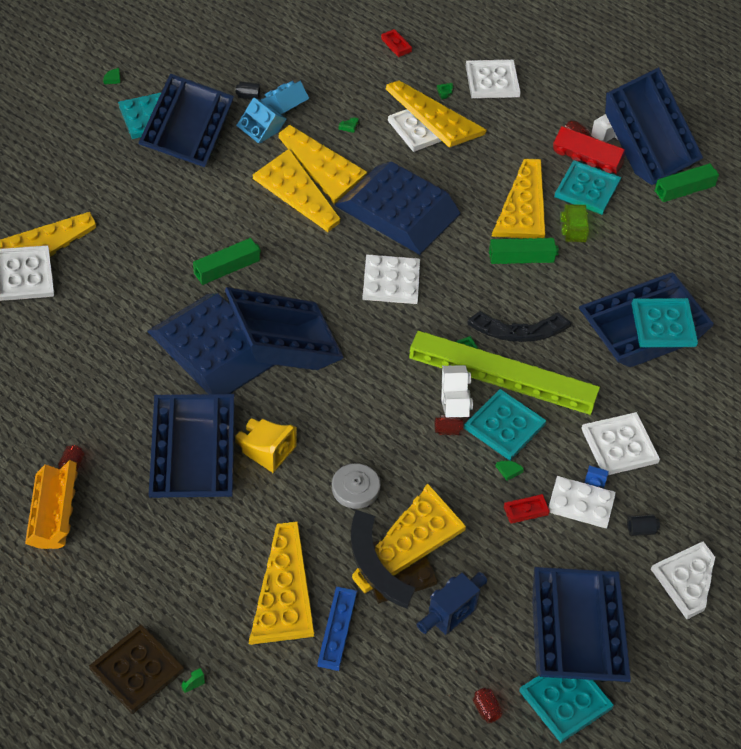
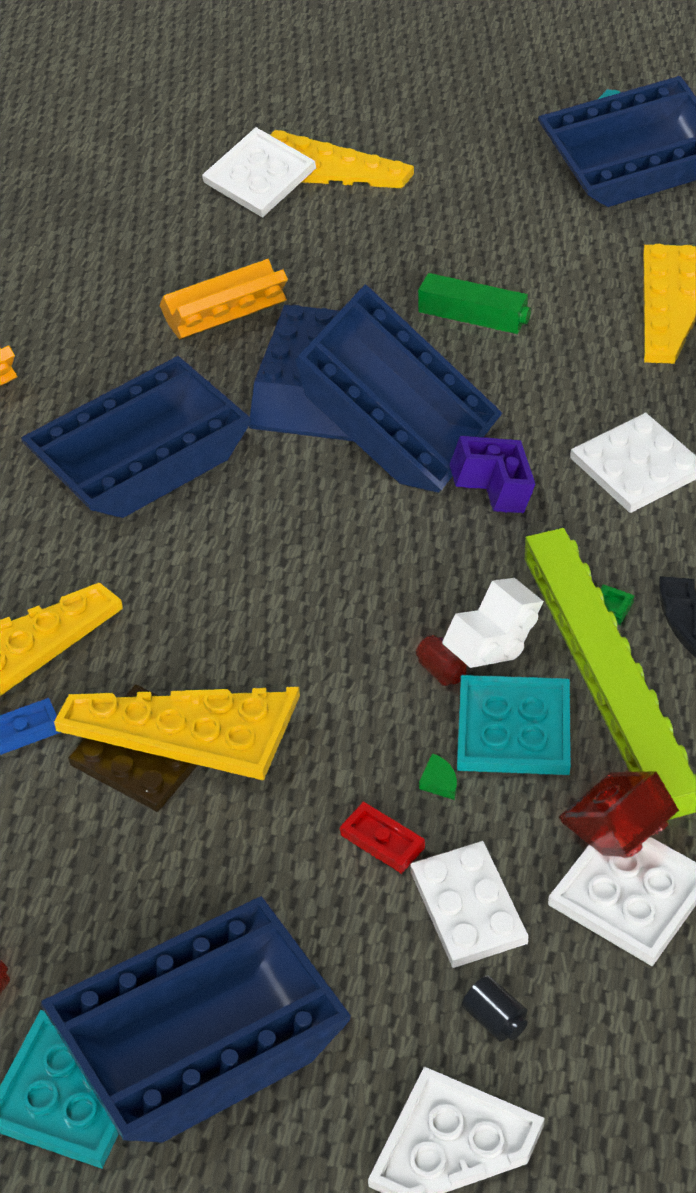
camera: 60 degrees right, 5 degrees down
(71, 453) = (34, 361): clear red brick -> none
(112, 77) = (642, 65): green tile -> none
(113, 352) = (223, 298): none -> light orange brick
(267, 442) = (219, 503): yellow hips -> none
(356, 485) = (237, 624): light grey wheel -> none
(358, 327) = (494, 466): none -> dark purple brick
(371, 566) = (97, 696): black tile -> none
(453, 603) = (116, 836): dark blue brick -> none
(589, 419) = (621, 812): none -> clear red slope
(596, 476) = (528, 891): blue plate -> none

